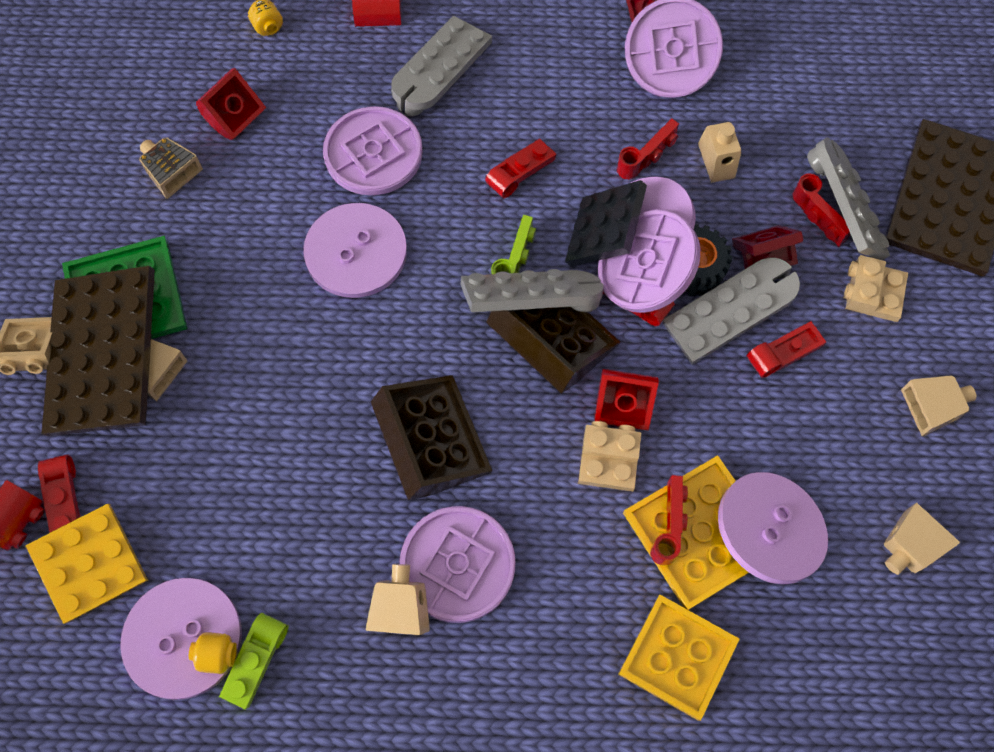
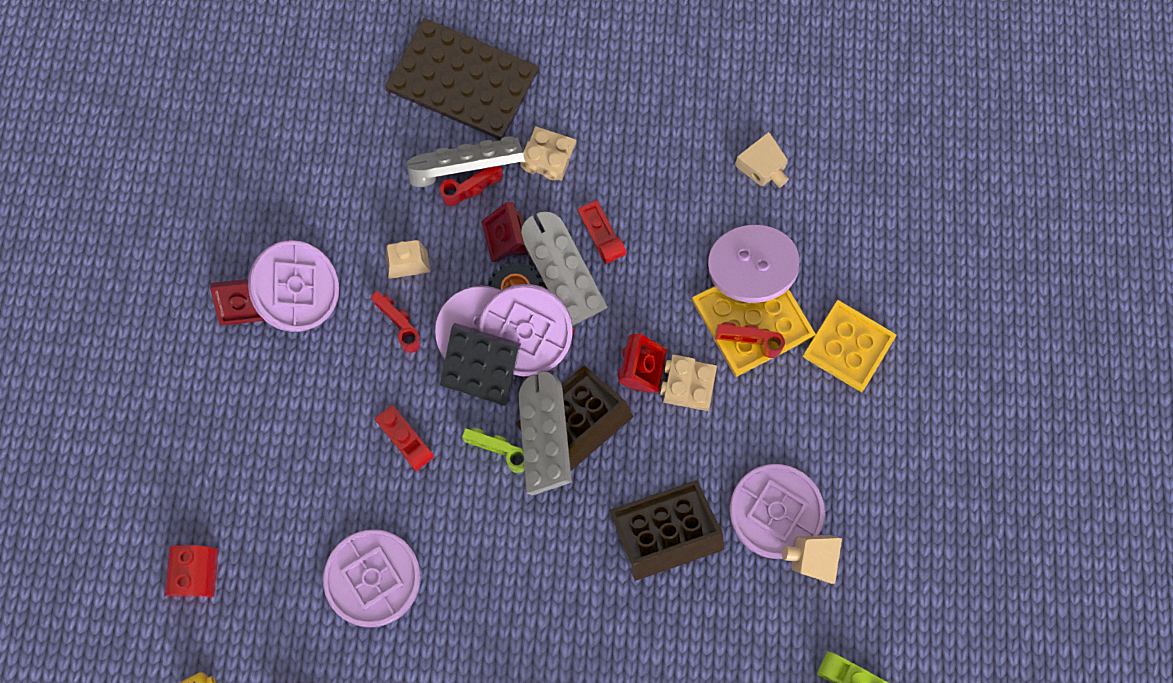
camera: 90 degrees left, 5 degrees up
(355, 250) = (478, 596): lavender plate -> none
(438, 65) = (279, 509): light grey plate -> none
(937, 401) = (652, 126): tan torso -> none

